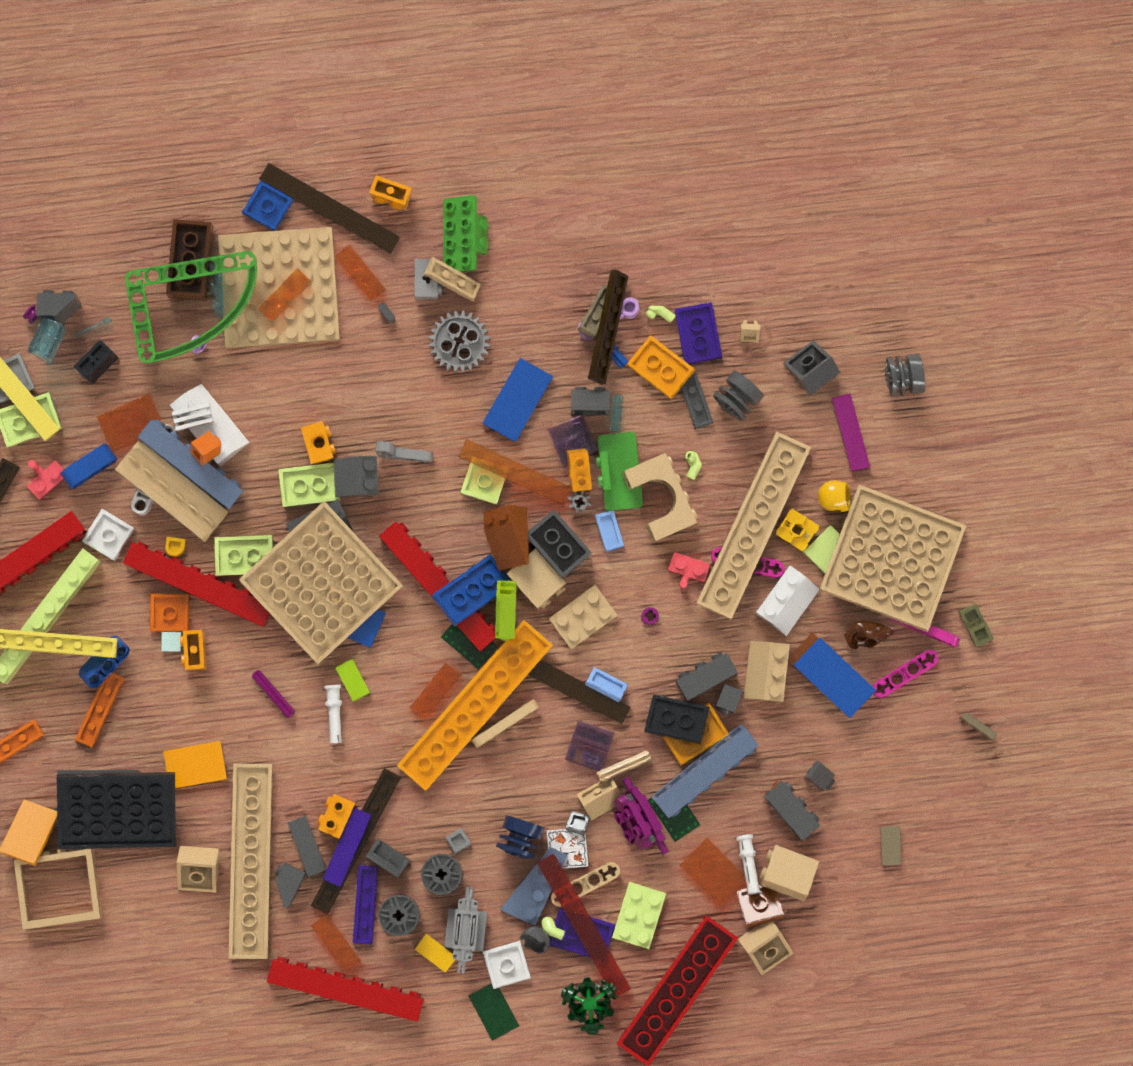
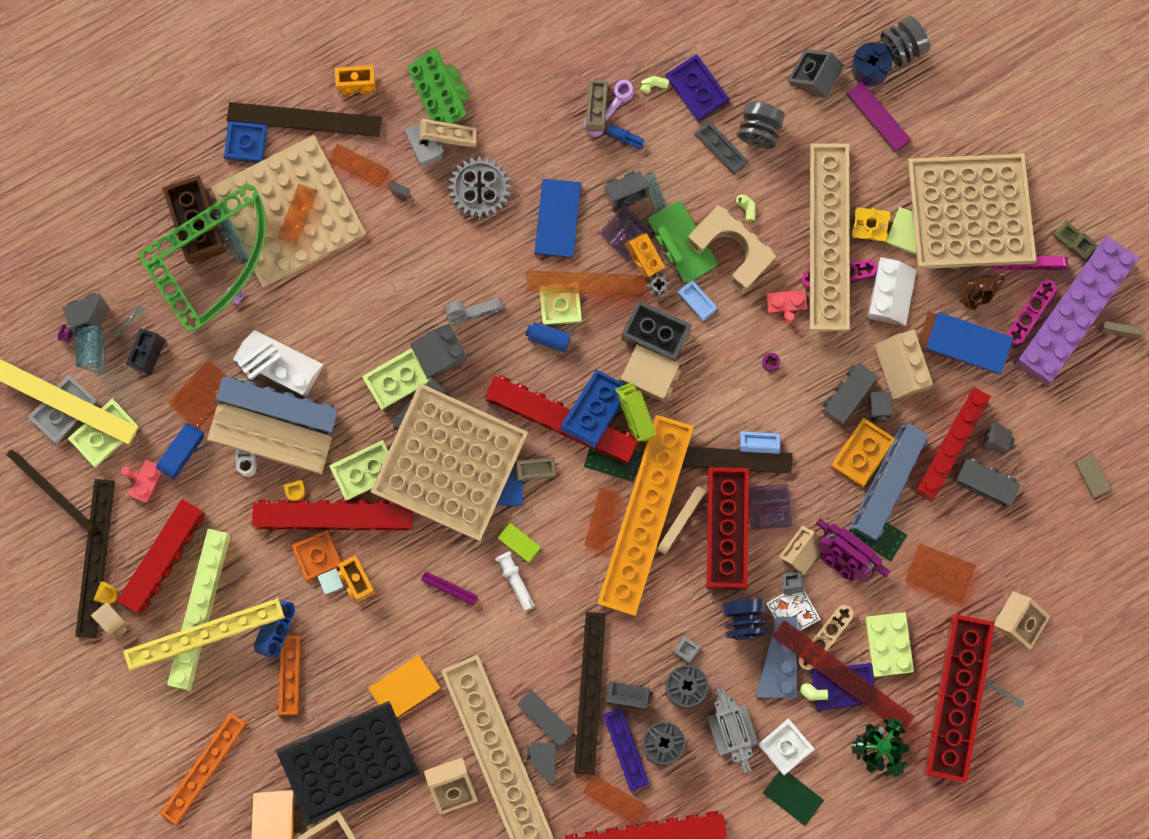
camera: 20 degrees left, 5 degrees down
(108, 535) = (226, 507): white tile -> none
(206, 448) = (285, 382): orange brick -> none
(311, 434) = (393, 347): light orange brick -> none
(336, 816) = (561, 676): light orange brick -> none
(347, 847) = (584, 701): dark purple tile -> none
(395, 620) = (535, 469): none -> dark tan tile
(435, 953) = (713, 765): yellow tile -> none
(460, 506) = (548, 337): none -> blue brick
(507, 536) = (606, 343): dark orange slope -> none
(536, 939) = (804, 709): dark grey hair -> none
(541, 749) = (727, 528): none -> red brick
(583, 617) = (709, 390): tan plate -> none
(608, 327) = (612, 114): dark brown tile -> none
(624, 766) = (814, 507): tan axle -> none
(660, 367) = (677, 131): light orange tile -> none
(677, 719) = (840, 445): black tile -> none
(730, 1017) = (990, 684): none -> clear light blue hinge
(747, 855) = (965, 542): white pin -> none
(750, 332) = (744, 65): tan tile -> none
(760, 907) = (998, 583): tile -> none
(777, 762) = (952, 444): none -> red brick
(789, 872) = (1012, 541): tan brick -> none
(835, 496) = (891, 178): yellow helmet -> none
(857, 388) = (862, 68): none -> dark blue brick
(945, 690) = (1076, 311): none -> medium lavender brick

